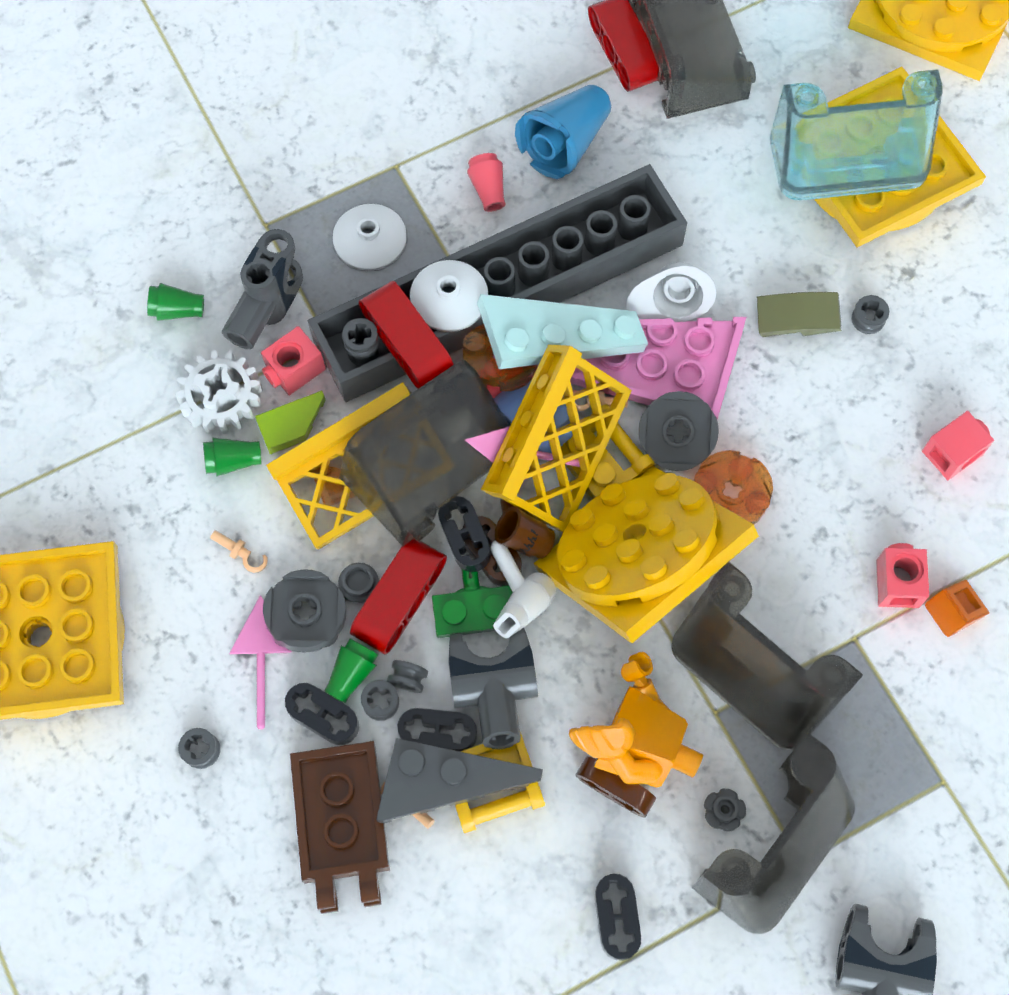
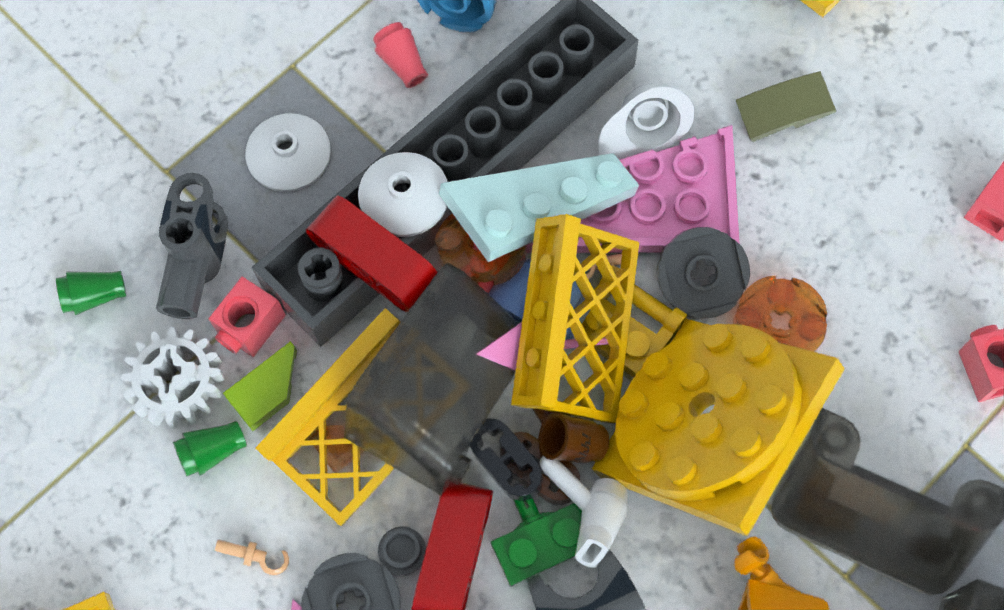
camera: 15 degrees left, 0 degrees up
(859, 313) = (870, 80): dark grey bush -> none

